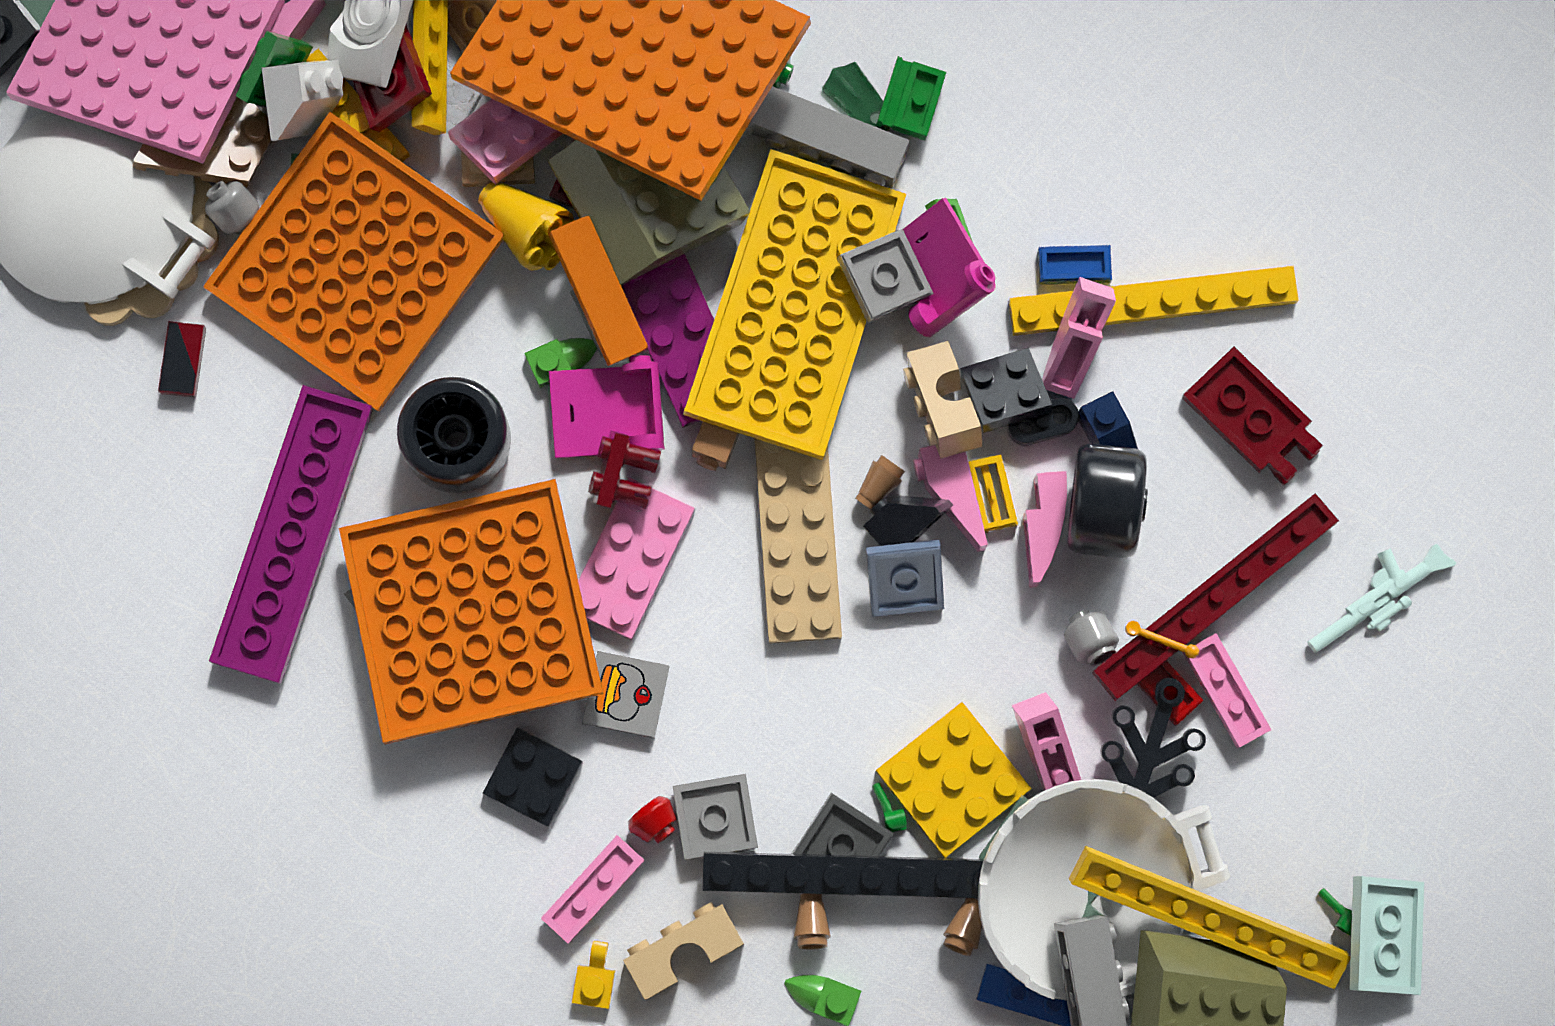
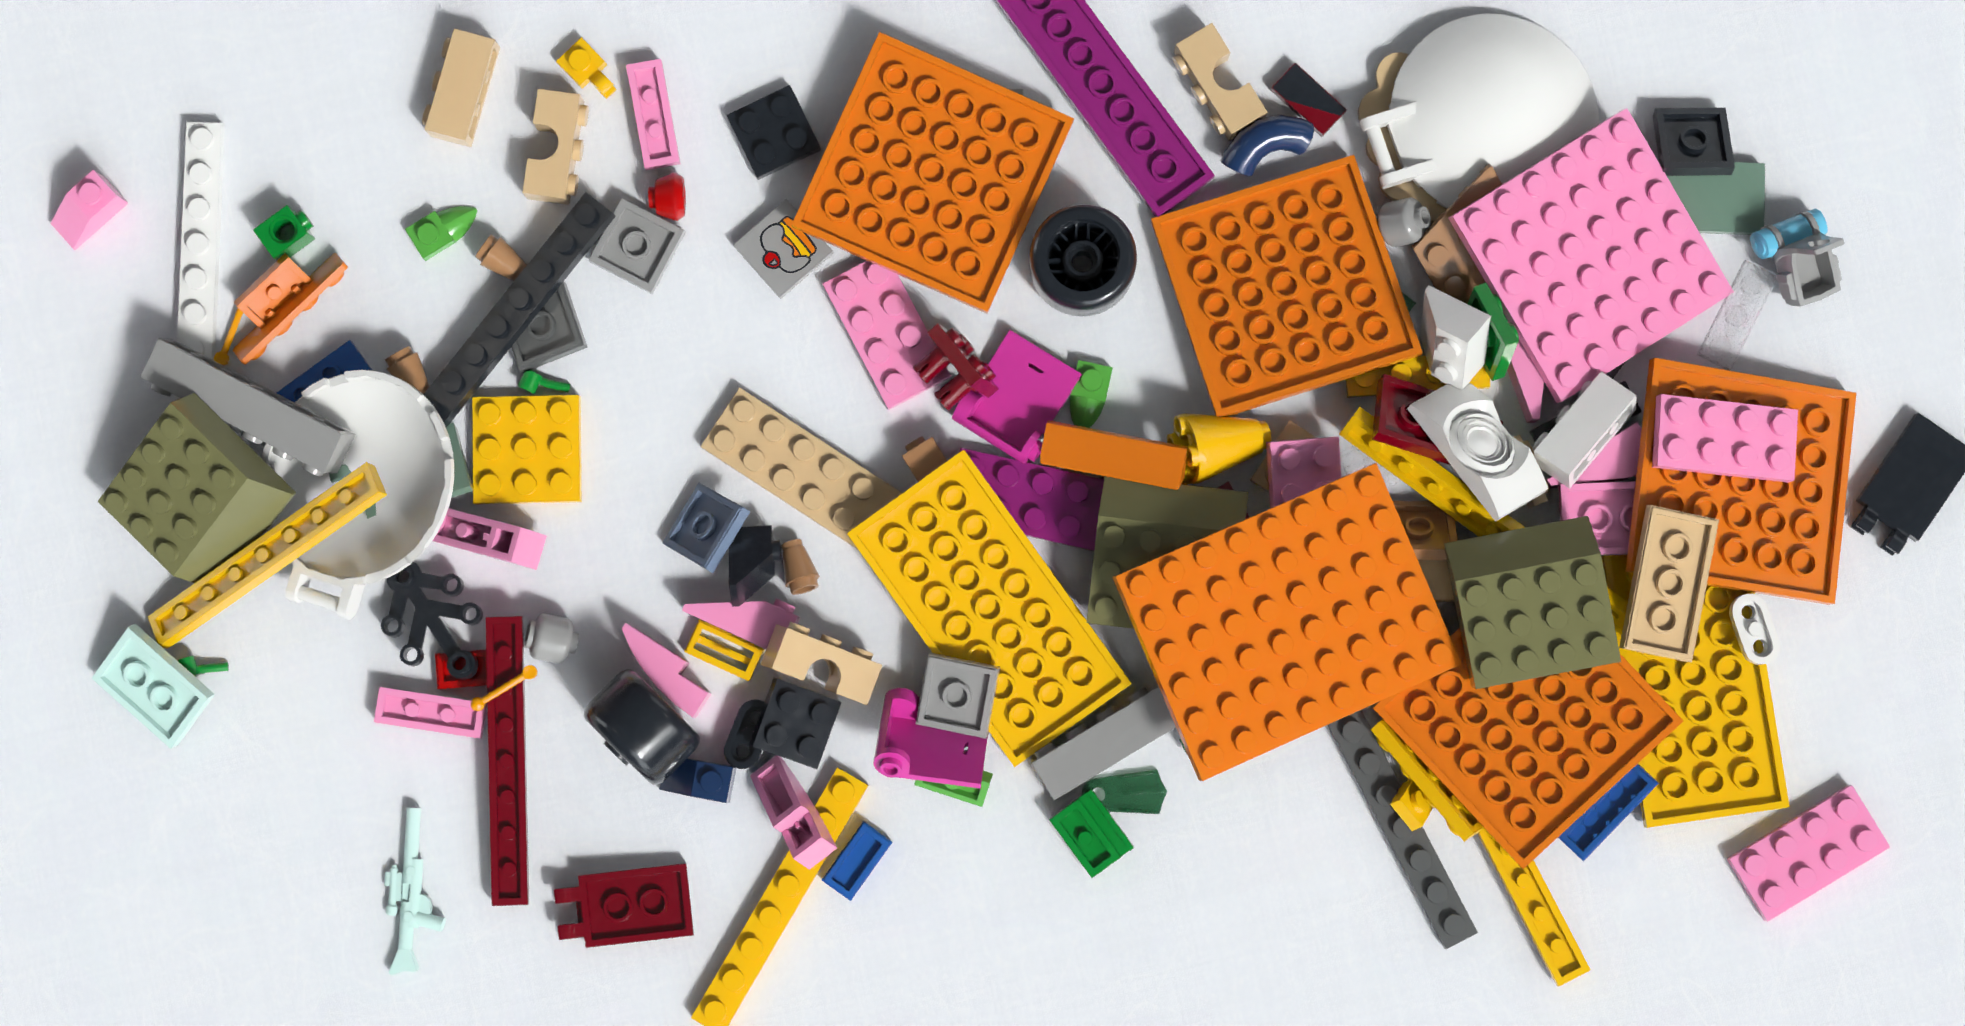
camera: 135 degrees right, 5 degrees up
(213, 468) = (1230, 109): none -> tan arch
(240, 366) = (1264, 137): none -> dark blue cylinder

